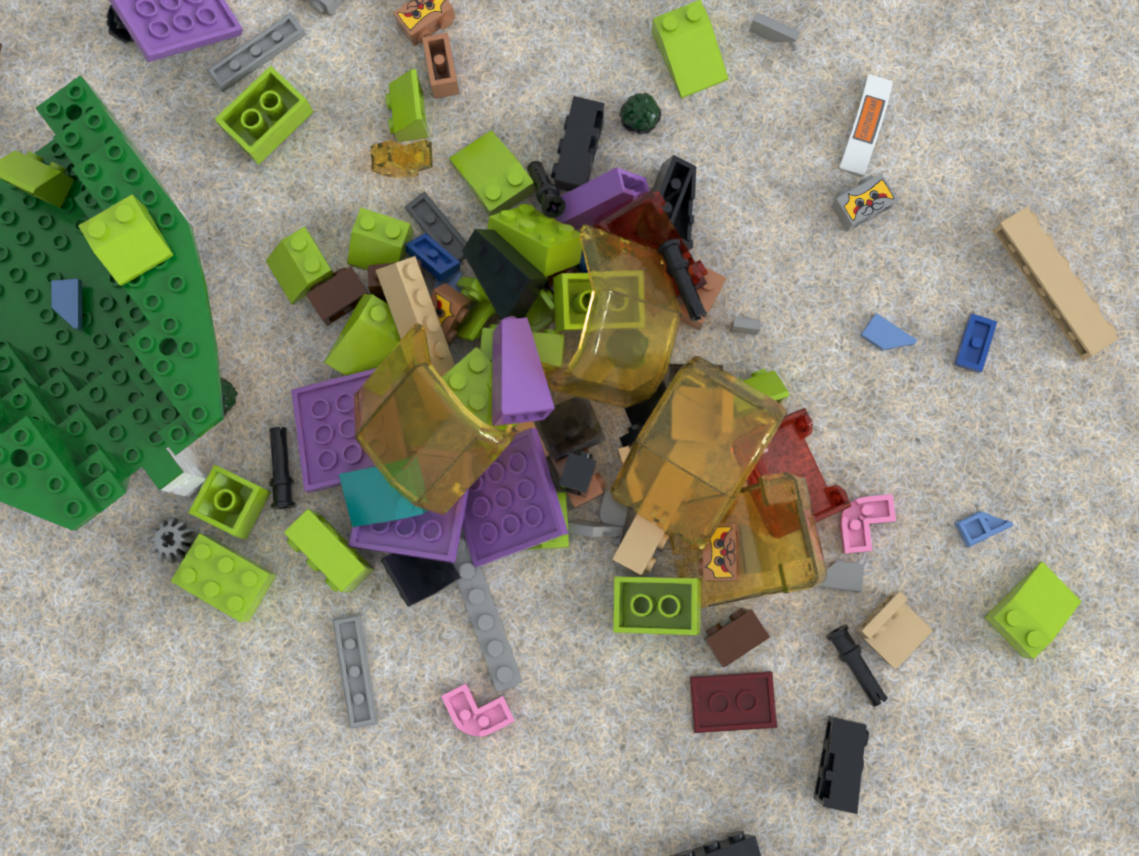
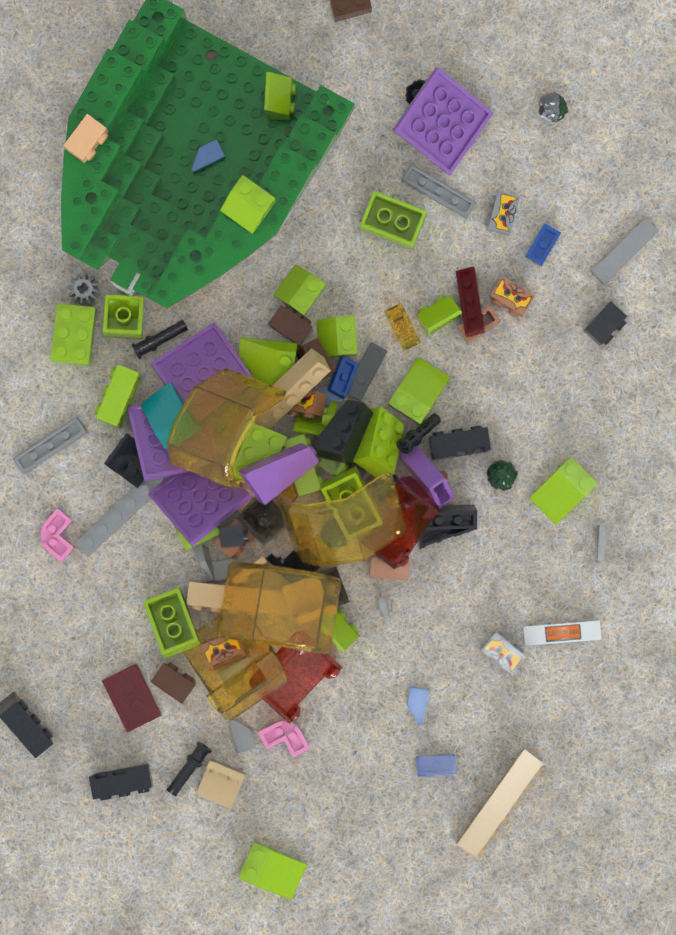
camera: 65 degrees right, 5 degrees up
(401, 59) = (470, 301): none -> dark red tile
(678, 269) = (395, 545): black pin -> none
(980, 527) = (313, 815): medium blue tile -> none

